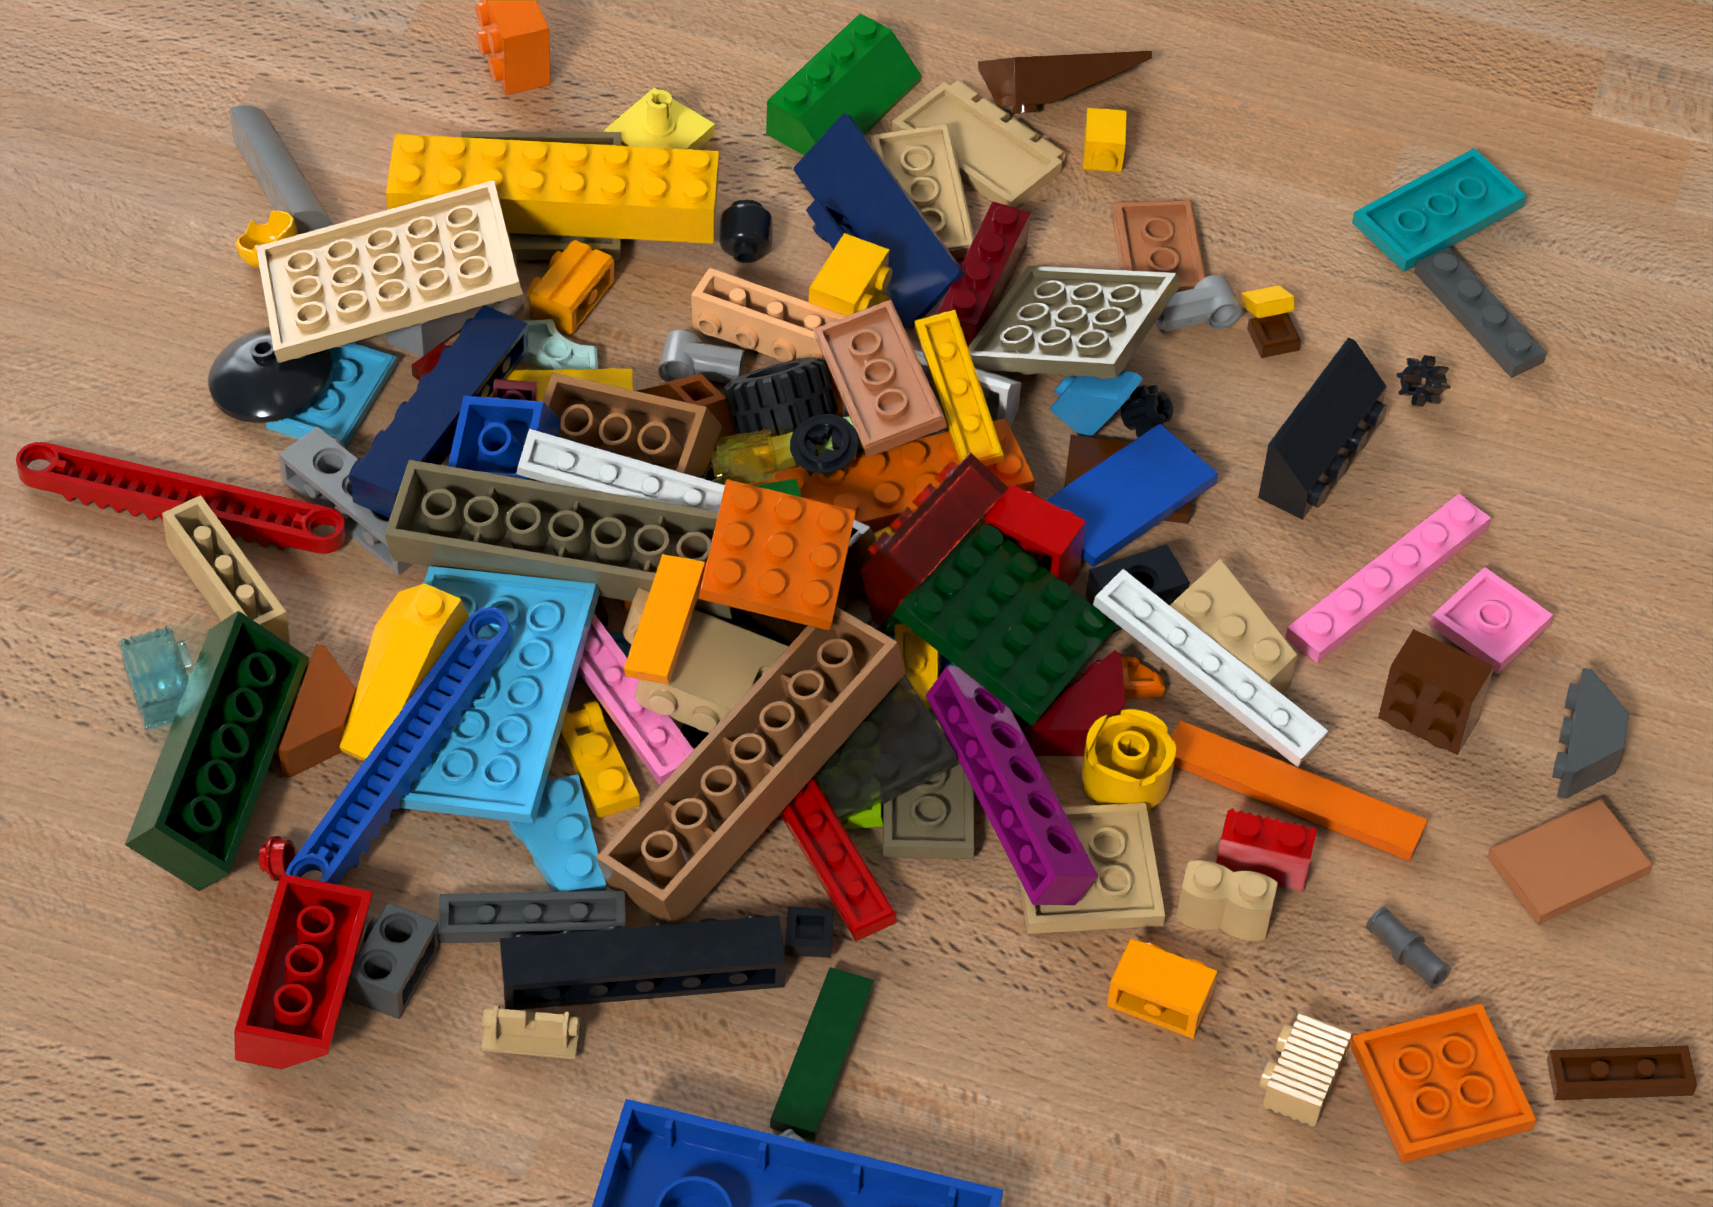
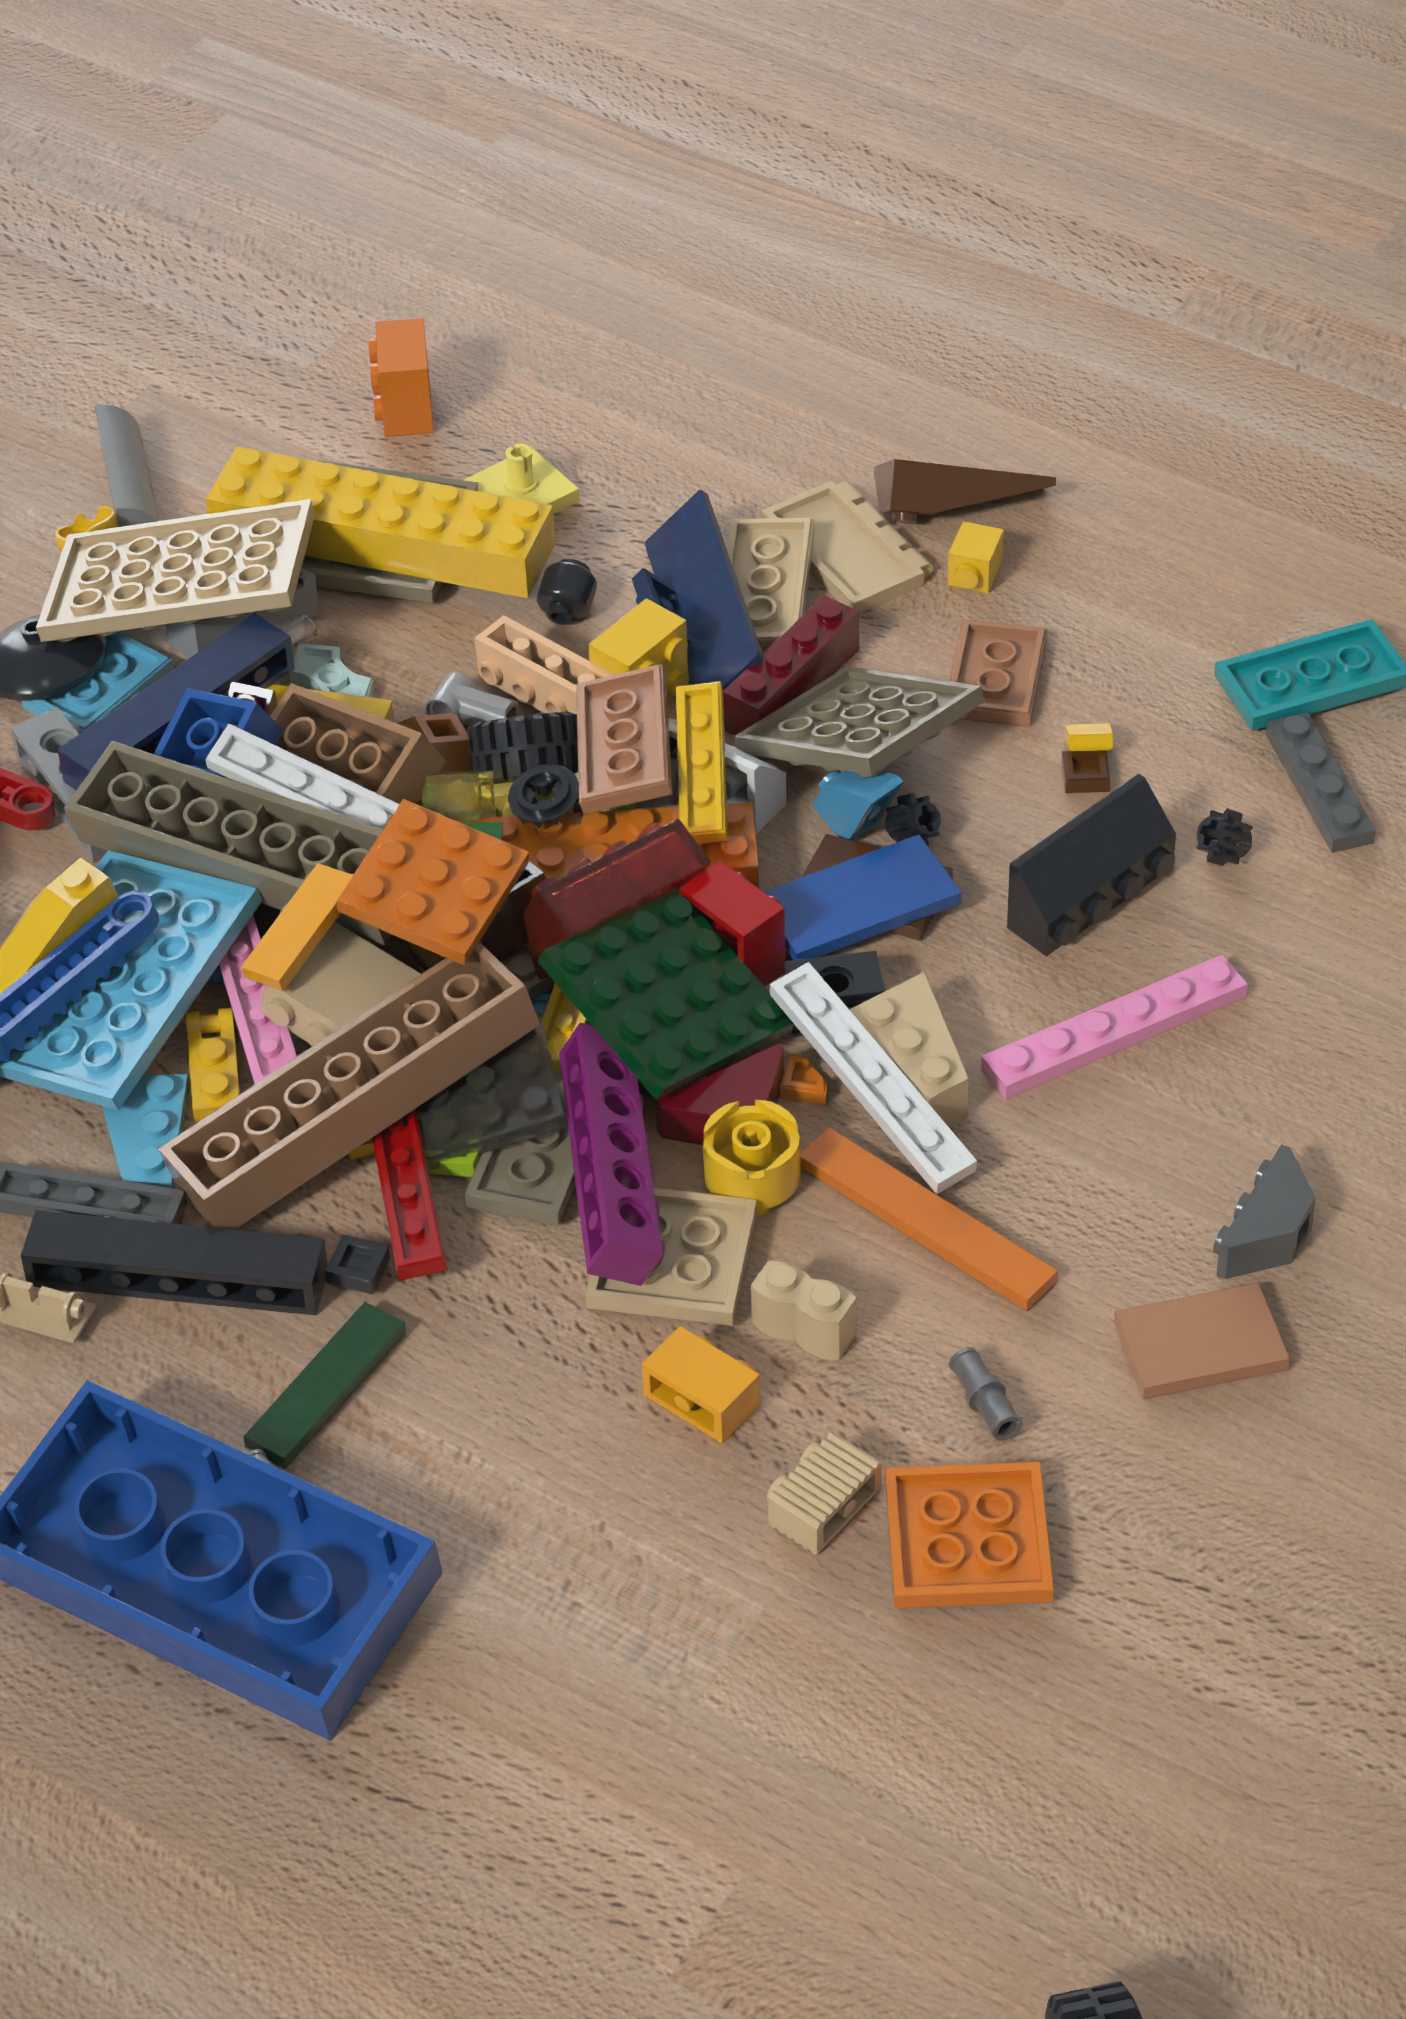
camera: 20 degrees right, 5 degrees down
(571, 286) = (370, 618): light orange brick -> none
(855, 74) = (736, 462): green slope -> none
(1208, 303) = (1024, 729): light grey piece -> none
(1267, 848) = (871, 1268): red brick -> none
(1435, 692) = (1107, 1141): reddish brown brick -> none
(1491, 619) = (1207, 1085): bright pink plate -> none
(1621, 1072) = (1171, 1562): reddish brown plate -> none

